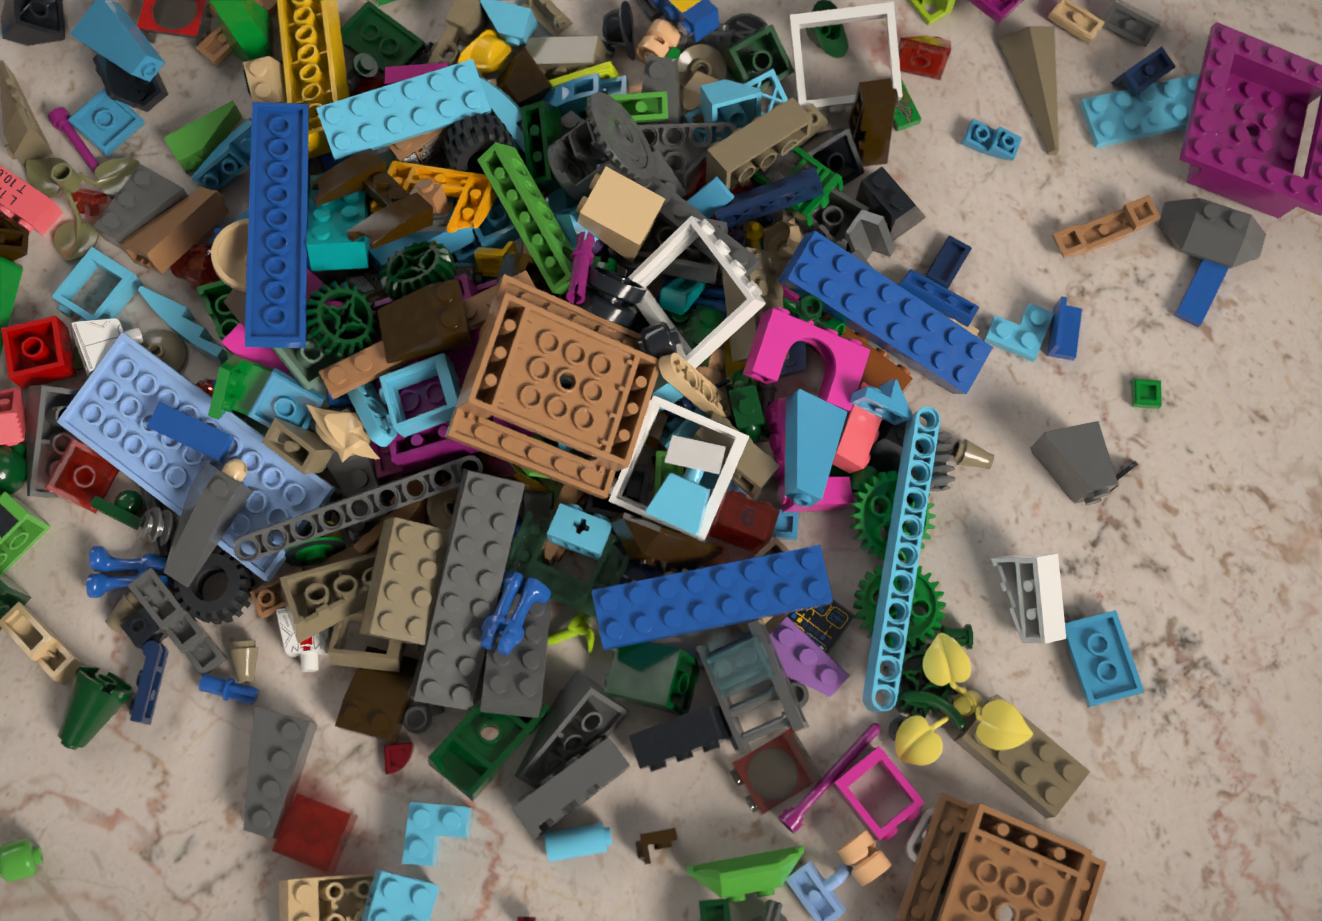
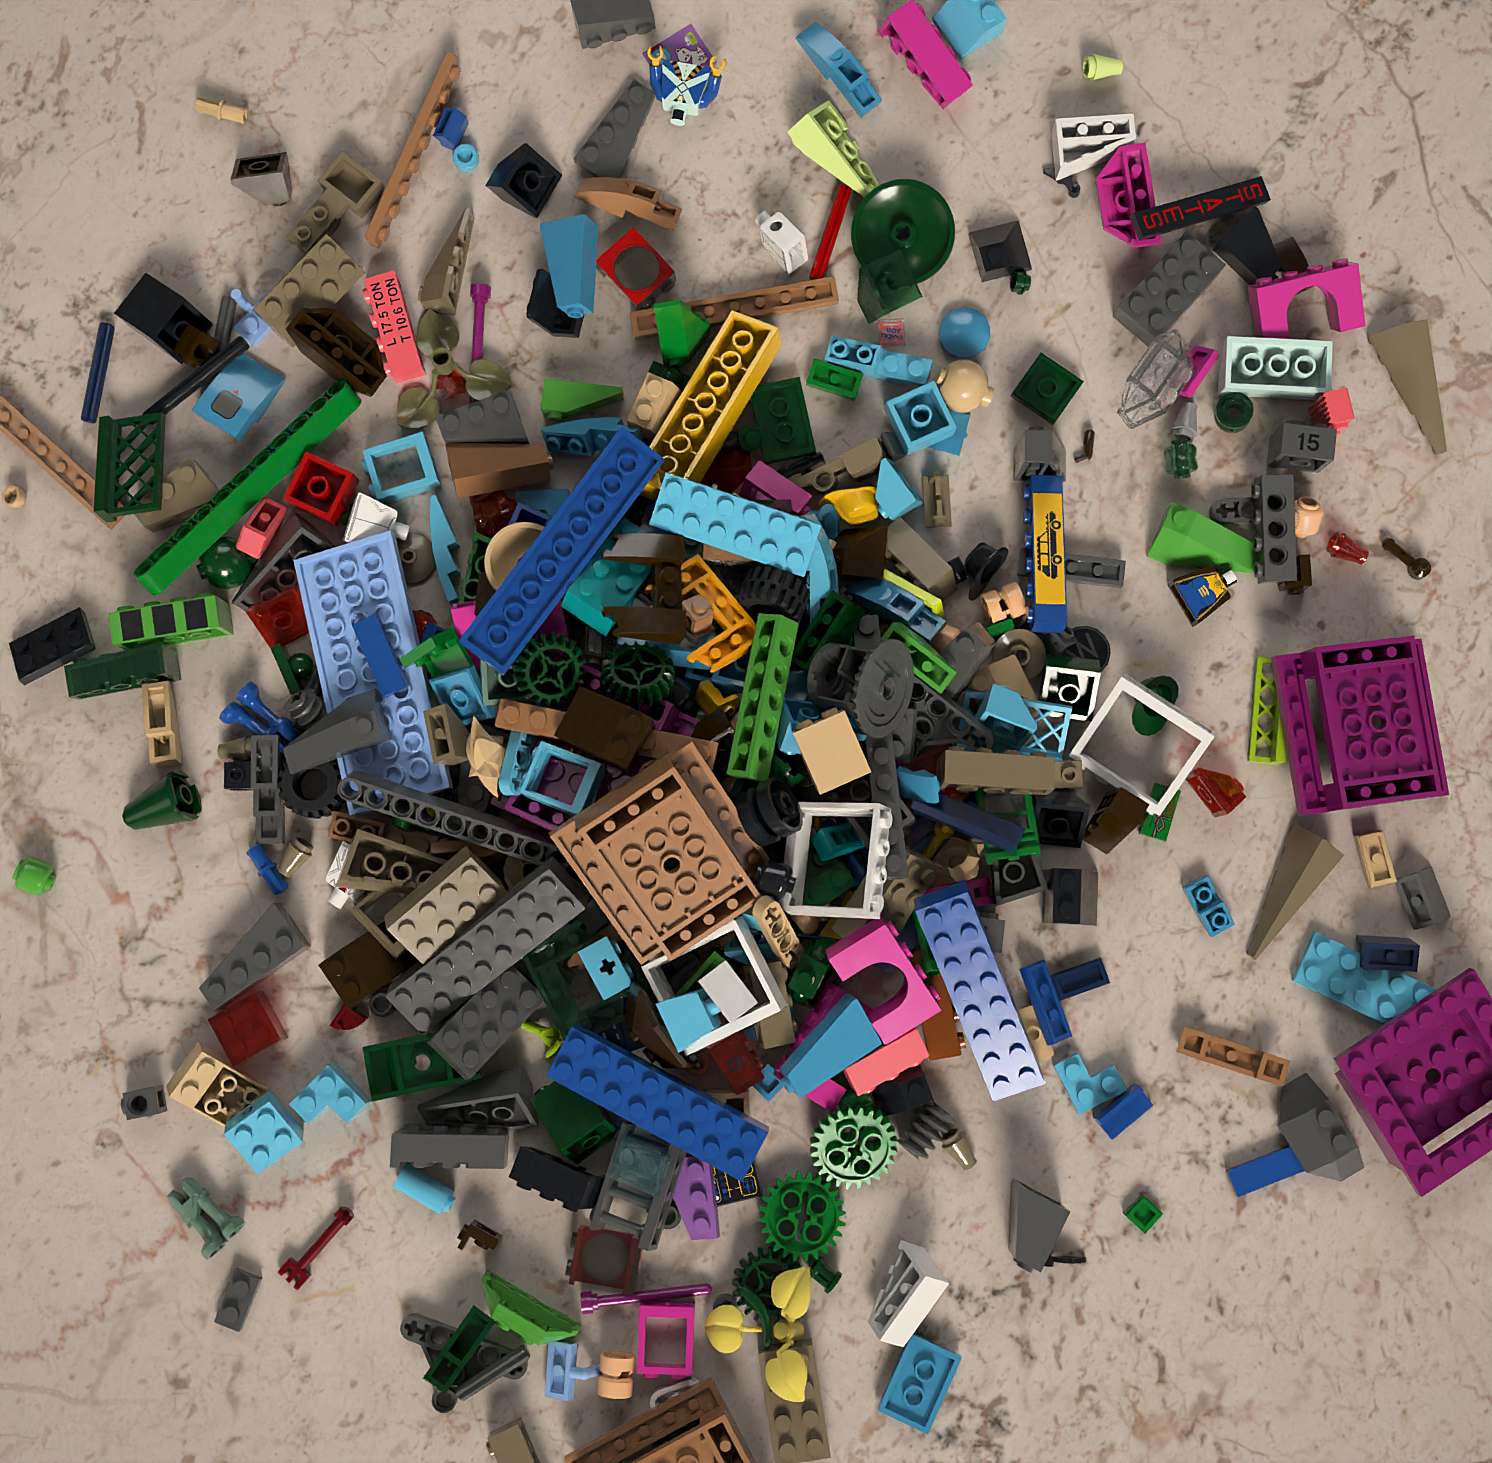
camera: 45 degrees right, 10 degrees up
(106, 122) = (509, 325): dark azure plate -> none
(148, 683) = (215, 818): dark blue plate -> none
(235, 469) = (389, 715): tan hinge -> none
(511, 628) = (492, 1004): blue piece -> none
(581, 258) = (768, 767): magenta pin -> none
(812, 302) = (920, 949): dark green plate -> none
(870, 234) = (1030, 907): dark grey panel -> none
(885, 402) = (919, 1061): dark azure slope -> none
(893, 567) = (823, 1200): medium azure beam -> none

